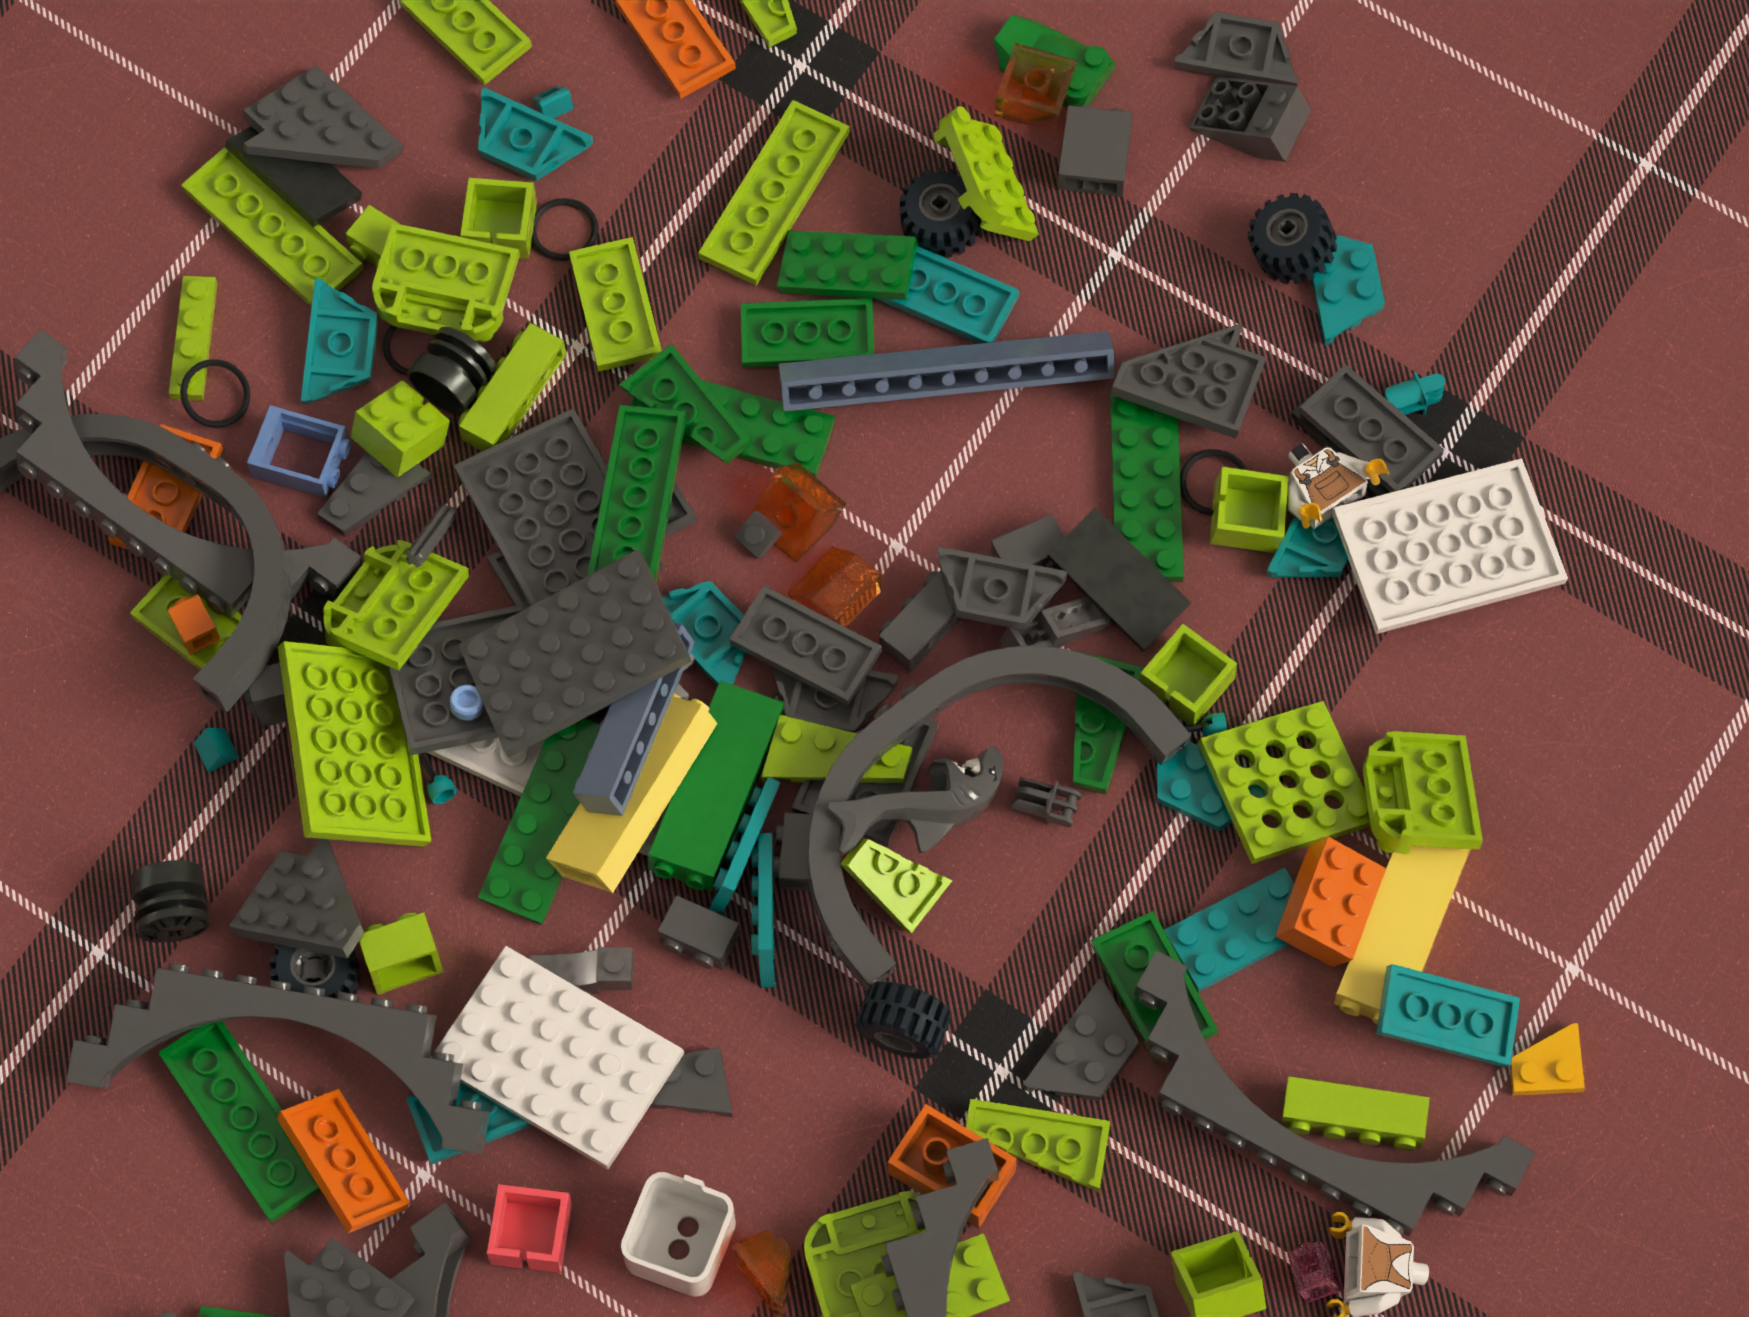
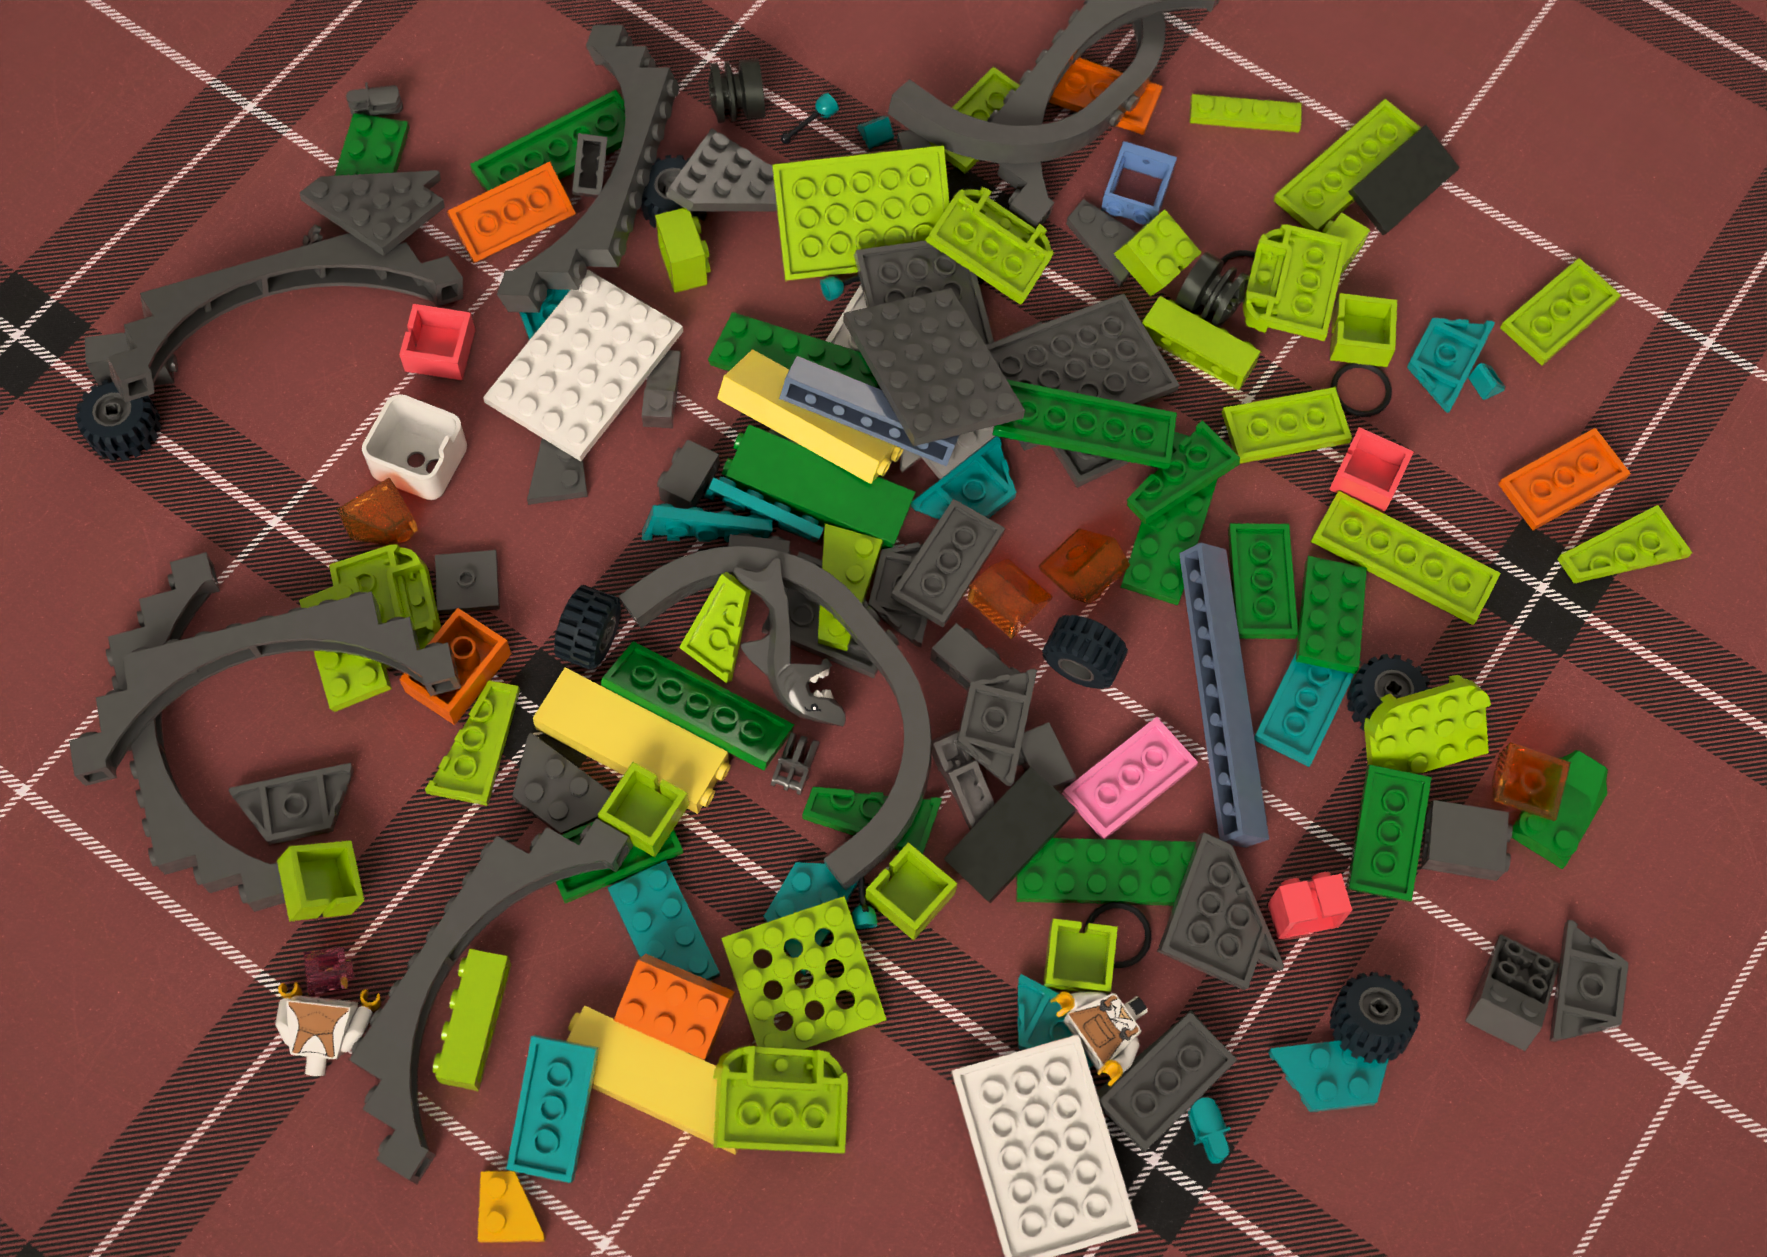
camera: 85 degrees right, 0 degrees up
(183, 807) = (824, 107): none -> hinge
(193, 624) = (977, 100): orange brick -> none
(215, 424) = (1195, 150): black tyre -> none
(292, 1059) = (589, 165): none -> dark grey brick
(318, 123) = (1448, 196): dark grey wing -> none
(338, 344) = (1240, 212): teal wing -> none
(430, 535) = (1056, 274): dark grey axle -> none
(466, 702) = (896, 290): light blue tile -> none
(676, 217) = (1372, 469): none -> coral piece
(758, 534) = (1062, 534): dark grey plate -> none
(837, 1173) = (467, 581): none -> dark grey plate
(910, 502) = (1085, 651): none -> black wheel
(985, 904) = (698, 705): none -> green plate
(1028, 974) = (624, 733): none -> light yellow brick
(1043, 466) = (1130, 778): none -> bright pink plate
(1094, 218) = (1389, 833): none -> green plate
(1121, 943) = (641, 811): none -> lime piece
(1181, 299) = (1309, 906): none -> coral piece

